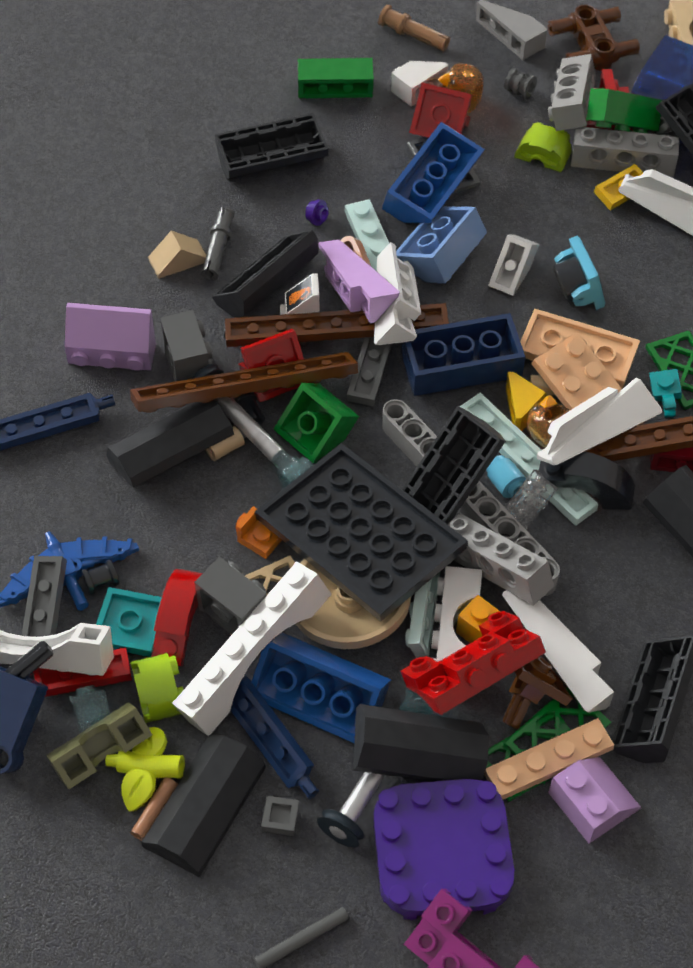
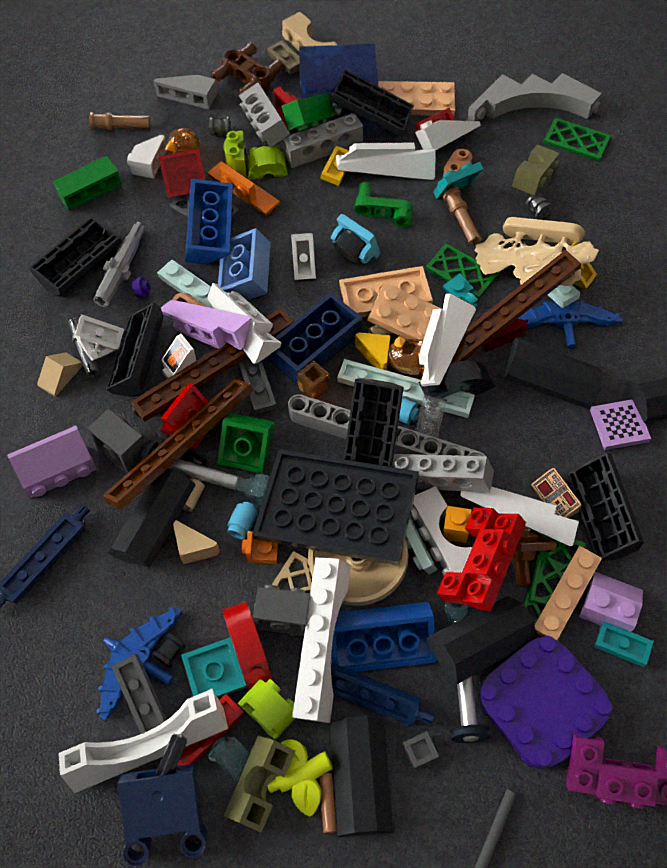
camera: 30 degrees left, 5 degrees up
(191, 491) = (193, 545): none -> tan slope
(237, 239) = (97, 337): none -> white slope
(257, 493) = (242, 520): none -> medium azure brick
(306, 179) = (118, 267): none -> light grey piece
(429, 396) = (313, 380): none -> clear orange brick
(500, 162) = (244, 188): none -> orange bracket
(515, 117) = (235, 151): none -> lime cylinder
(574, 845) = (623, 644): none -> teal plate
(615, 656) = (555, 491): none -> slope
(648, 37) = (286, 55): none -> dark tan plate
(657, 268) = (395, 209): none -> green beam

